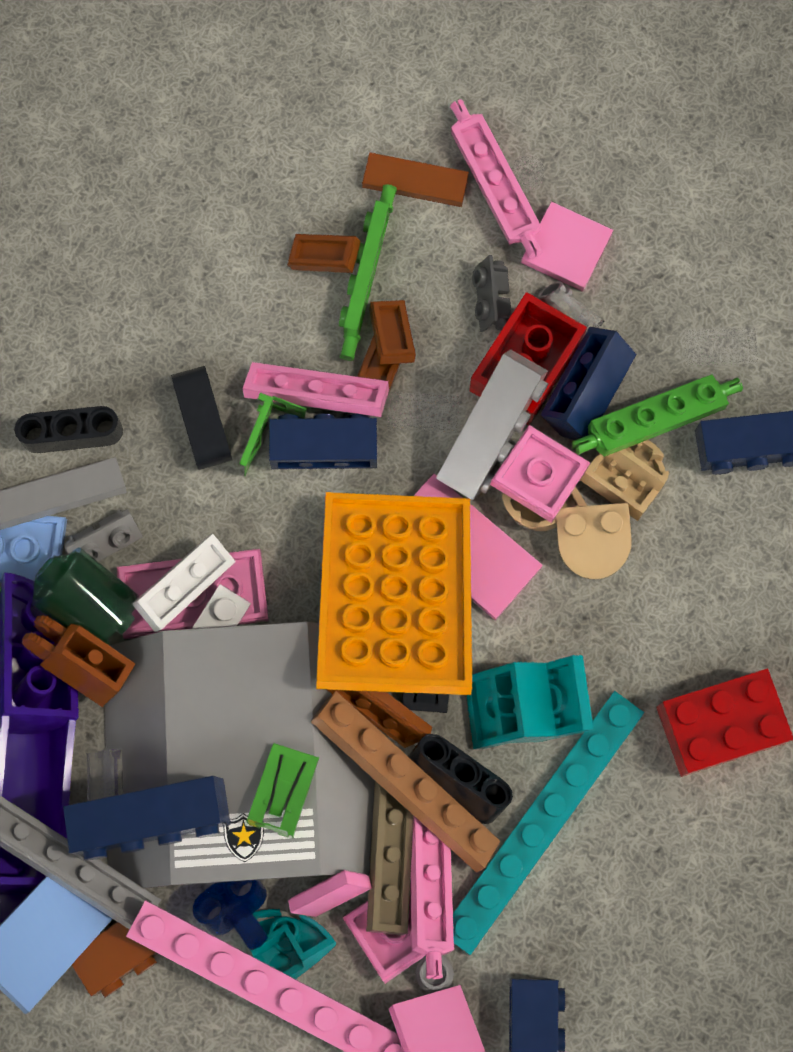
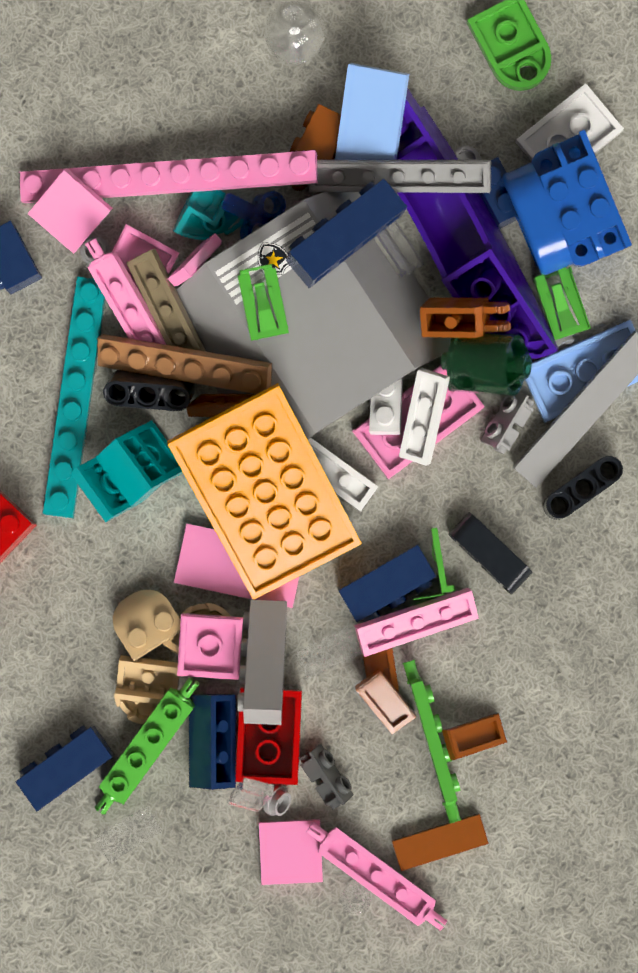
camera: 155 degrees right, 10 degrees up
(304, 570) = (344, 479): none -> white plate

